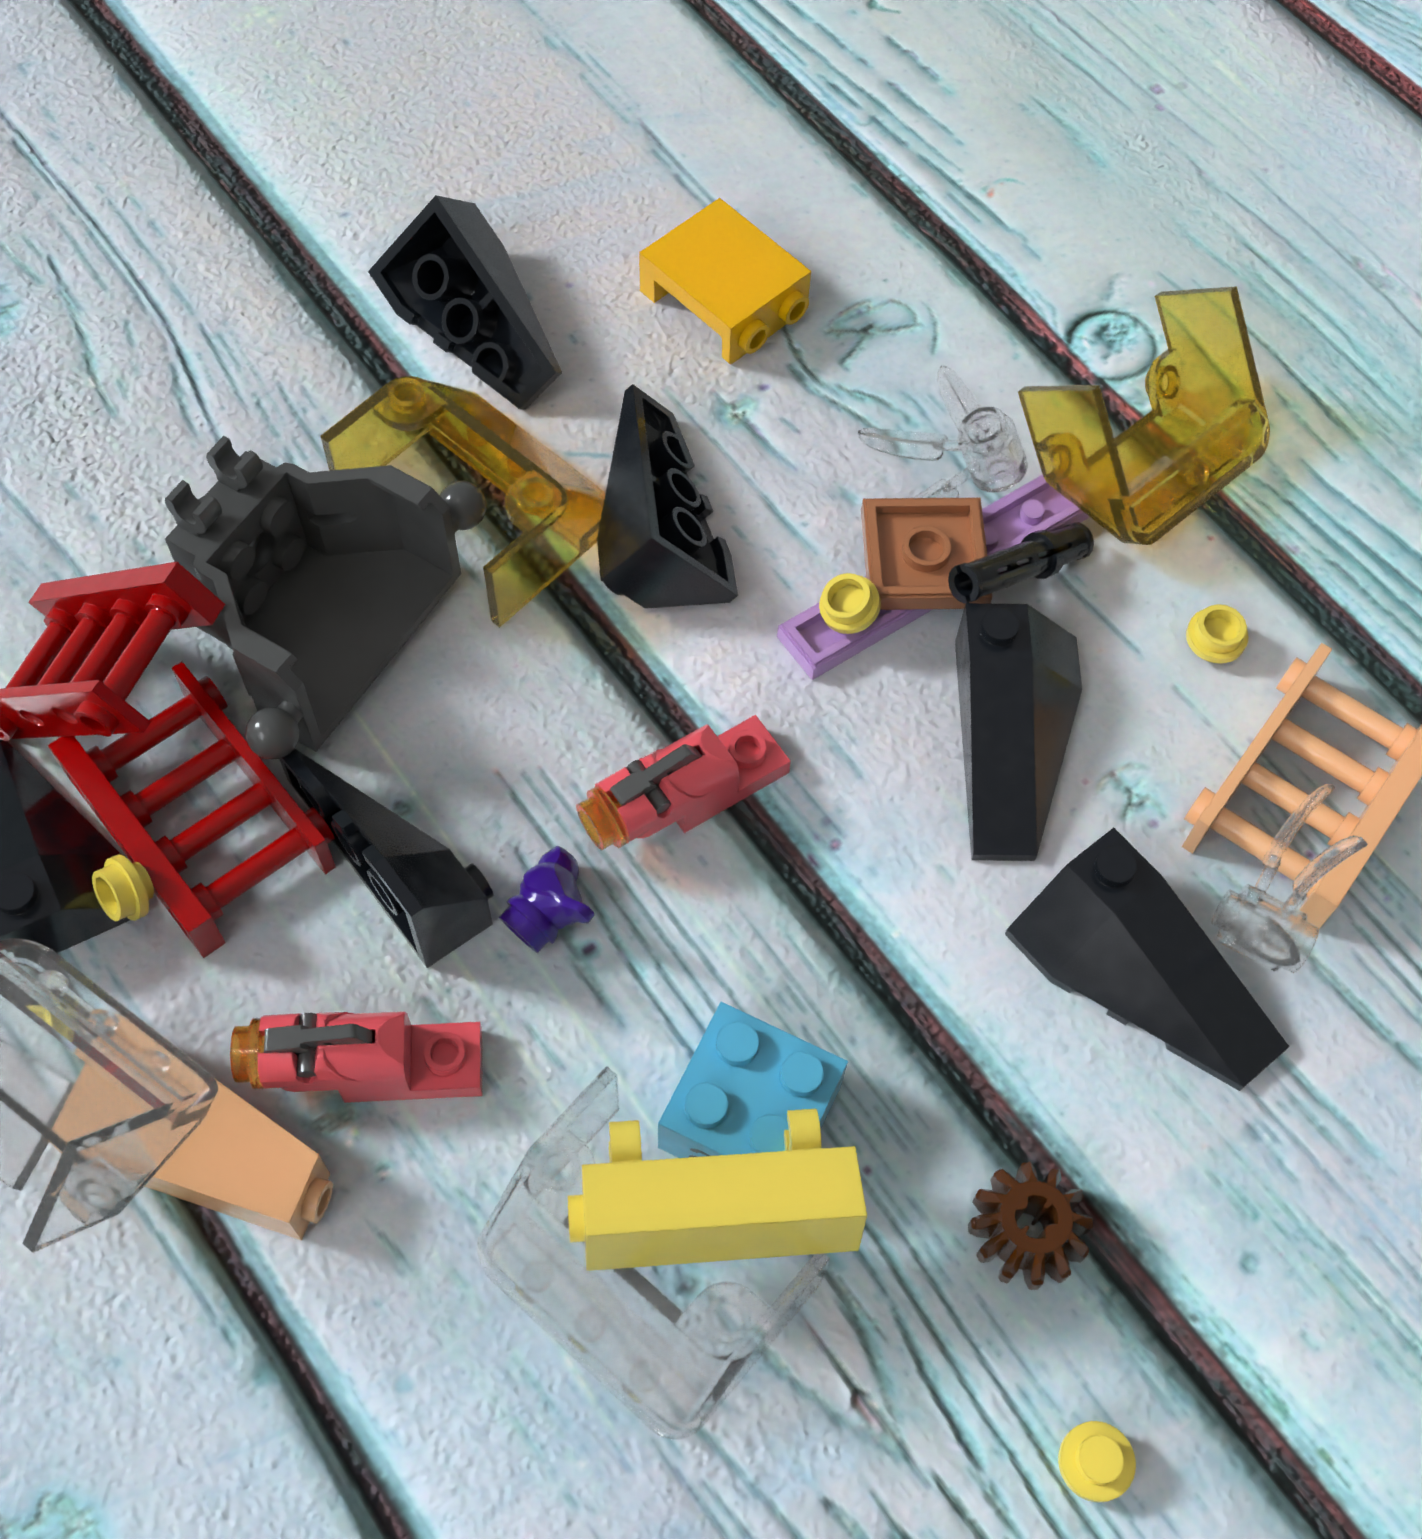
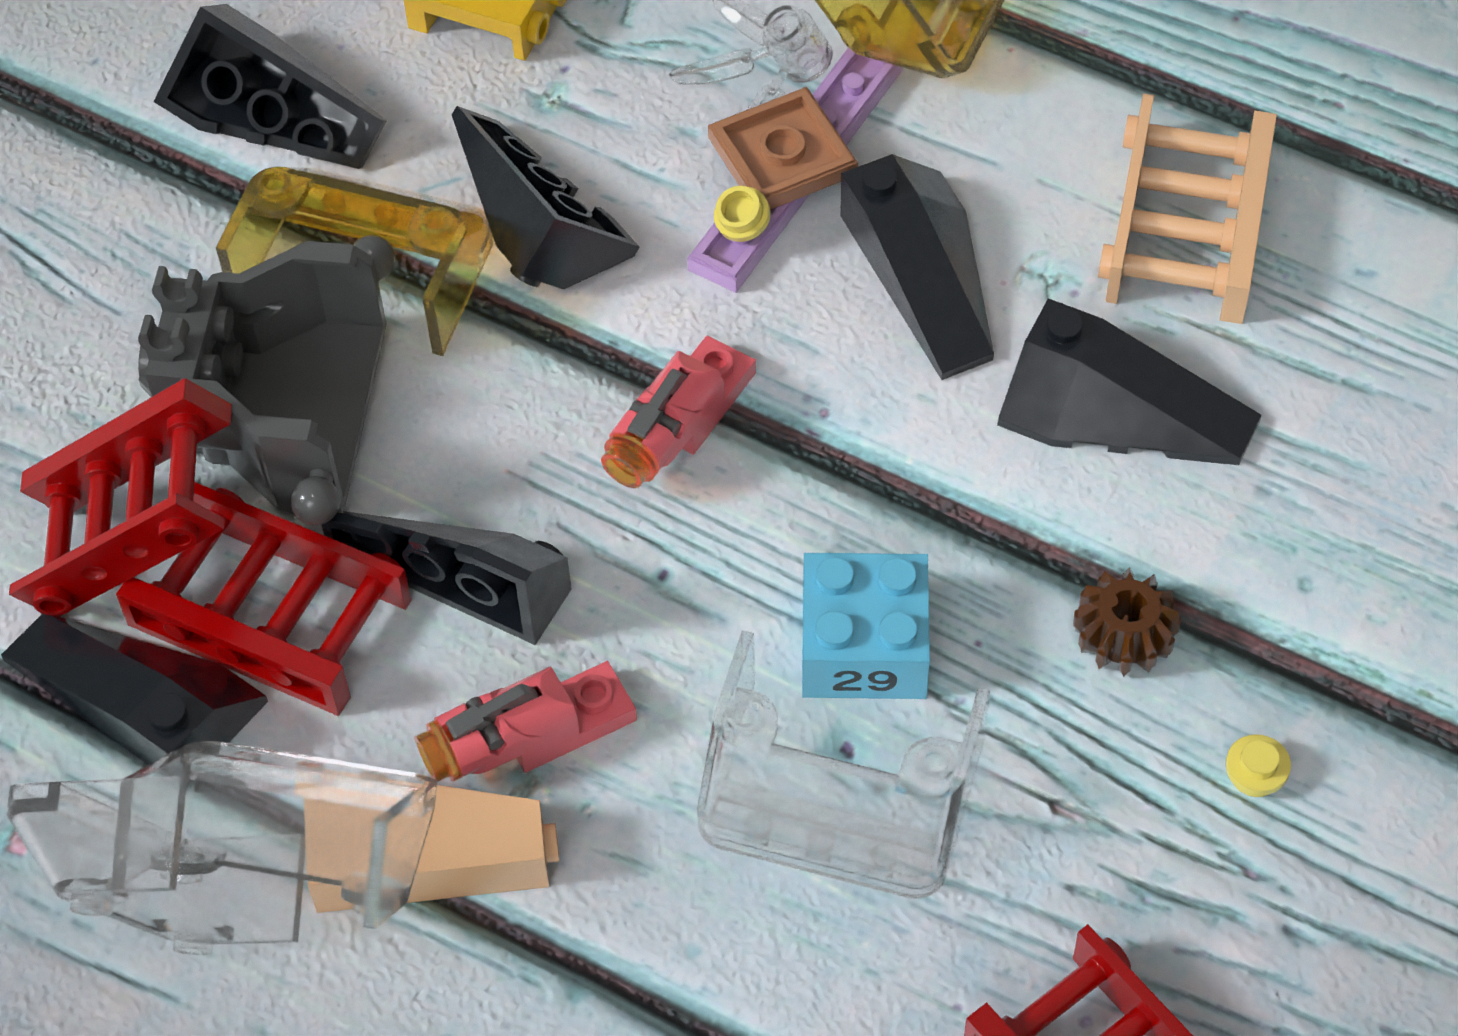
camera: 20 degrees left, 5 degrees down
(123, 888) = (252, 676): light yellow plate -> none
(547, 900) = (613, 548): dark purple animal -> none
(718, 1204) = (887, 682): light yellow brick -> none
(982, 578) = (870, 108): black pin -> none
(1217, 634) = (1054, 122): light yellow plate -> none
(1266, 927) = (1197, 330): clear plant -> none

